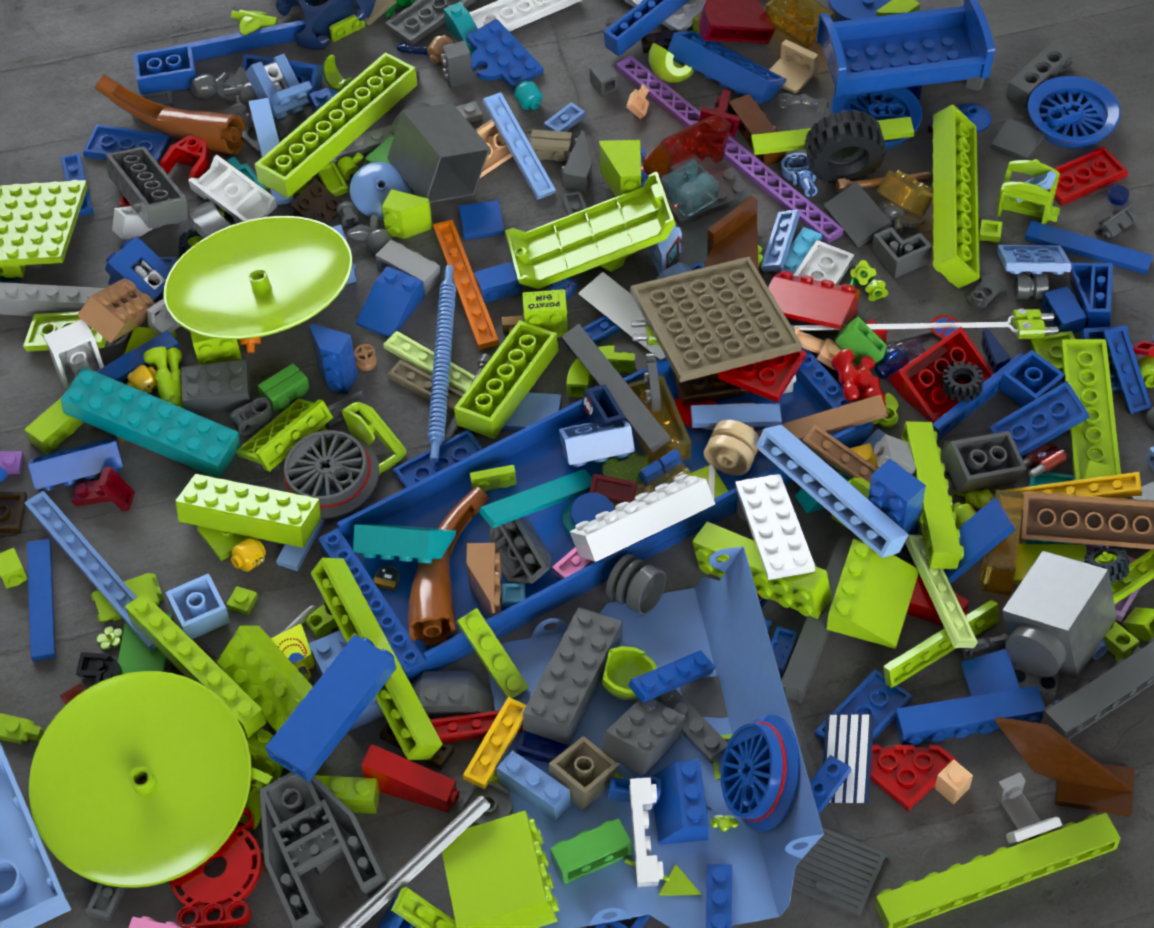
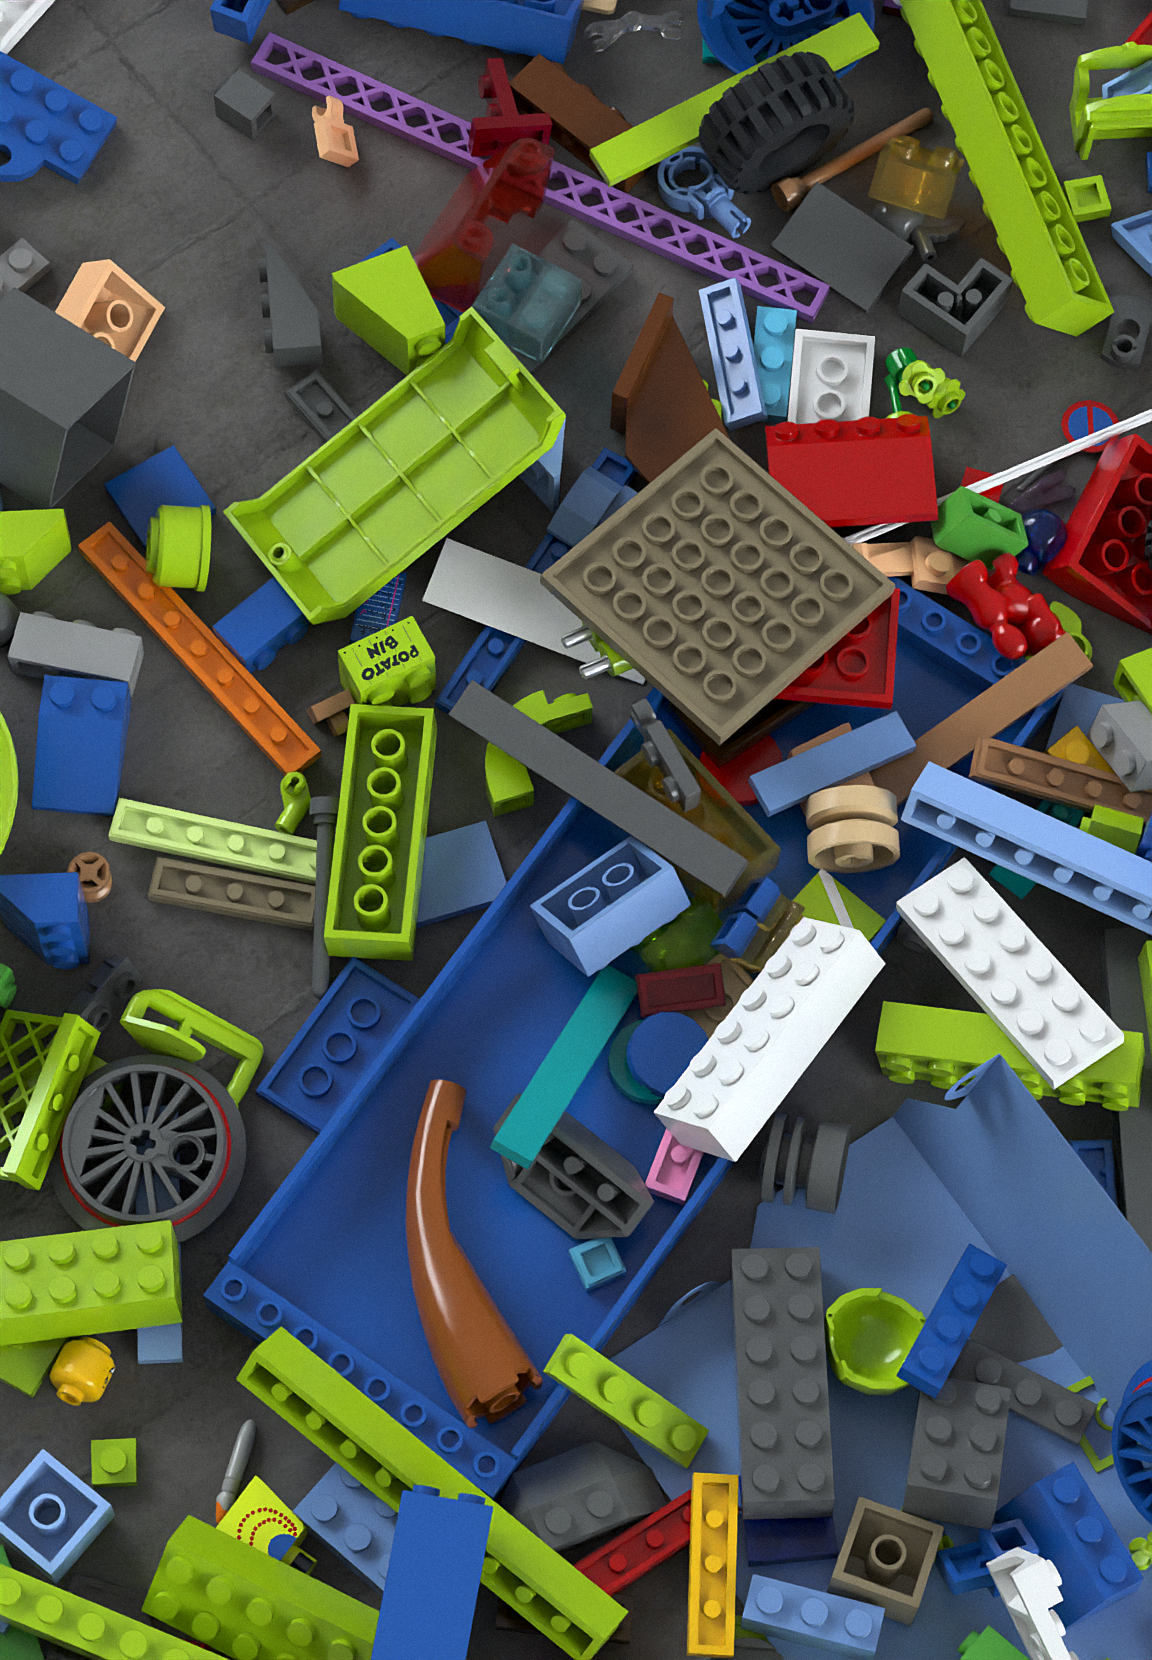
camera: 30 degrees left, 15 degrees up
(321, 621) = (283, 1449): lime leg -> none
(387, 578) = (360, 1318): tile -> none
(402, 542) = (367, 1246): teal slope -> none
(441, 364) = (243, 840): medium blue hose -> none
(476, 235) = (179, 546): none -> lime wheel
(476, 352) = (295, 801): none -> lime arm
(484, 576) = (543, 1262): medium nougat slope -> none
(494, 478) = (443, 1056): lime plate -> none
(519, 146) = (163, 318): light blue tile -> none
(528, 95) = (120, 192): teal head -> none
(551, 144) = (216, 291): dark tan brick -> none
(565, 118) = (213, 222): medium blue plate -> none
(601, 406) = (596, 840): dark blue slope -> none
(665, 68) = (357, 42): lime cylinder -> none

